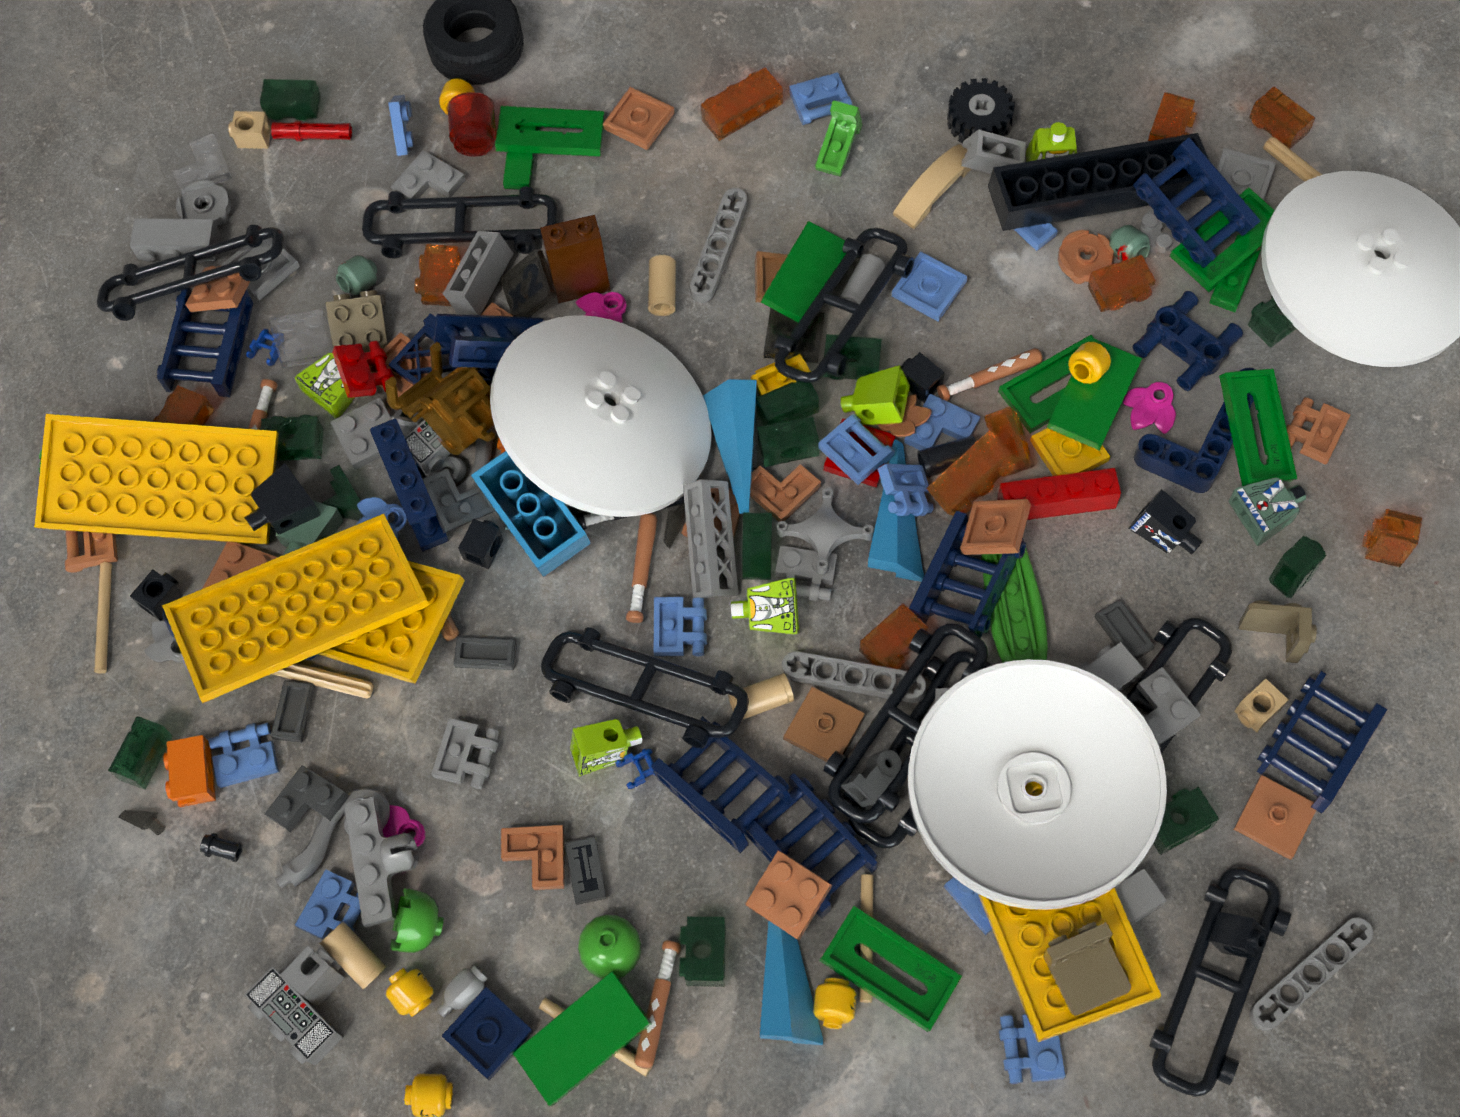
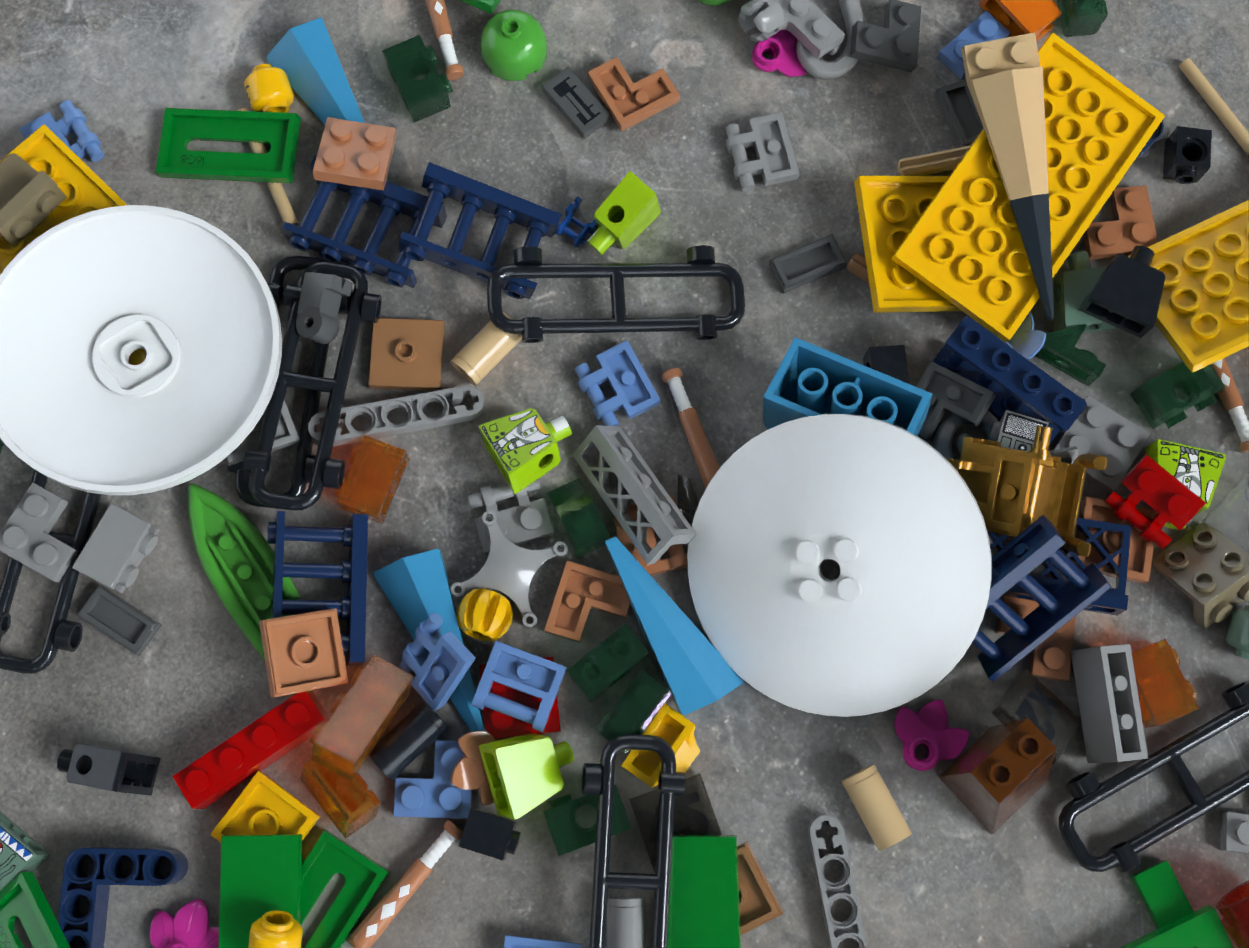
camera: 145 degrees right, 10 degrees up
(268, 662) = (1009, 99): none -> tan plate
(857, 507) = (484, 615): none -> yellow piece

